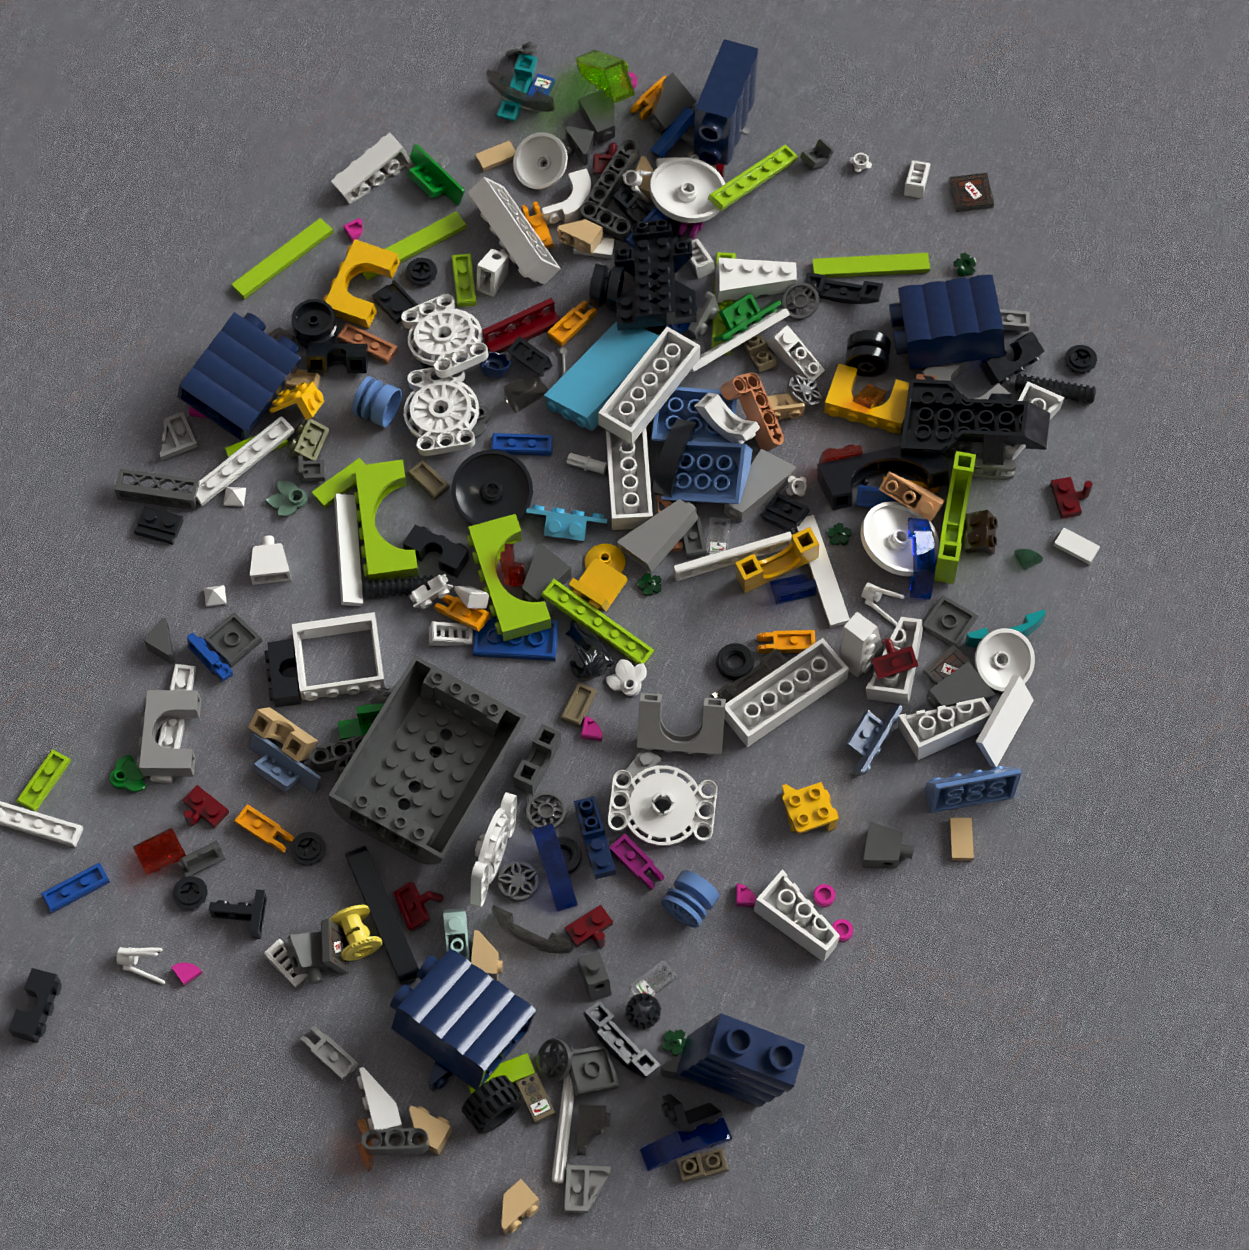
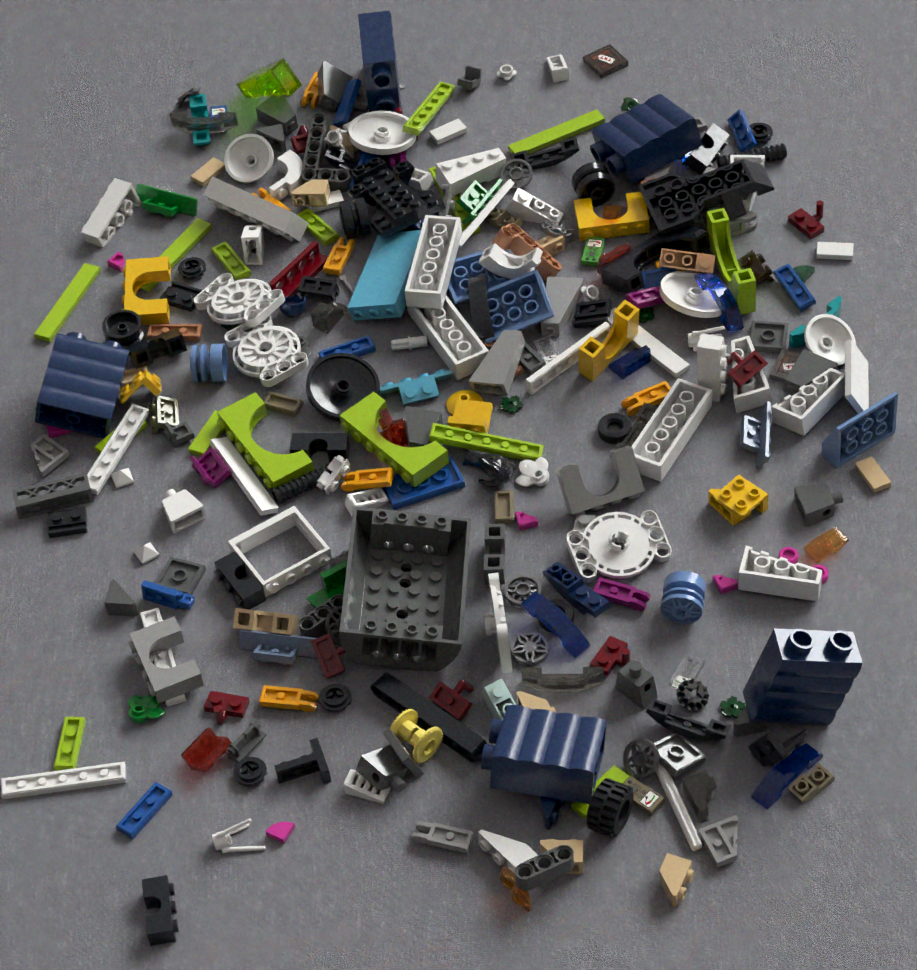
camera: 20 degrees left, 15 degrees down
(285, 498) = (169, 461): sand green plate -> none
(320, 526) = (211, 468): none -> magenta bracket
(320, 808) = (329, 655): none -> dark red plate
(472, 596) = (372, 462): white slope -> none
(569, 275) = (319, 228): none -> lime tile
(762, 212) = (448, 131): none -> white tile
(829, 432) = (592, 251): none -> bright green tile
(845, 519) = (645, 297): none -> magenta hinge
(867, 899) = (825, 543): none -> clear orange slope
(1008, 574) = (794, 287): none -> blue tile
(1062, 351) = (742, 131): none -> blue tile

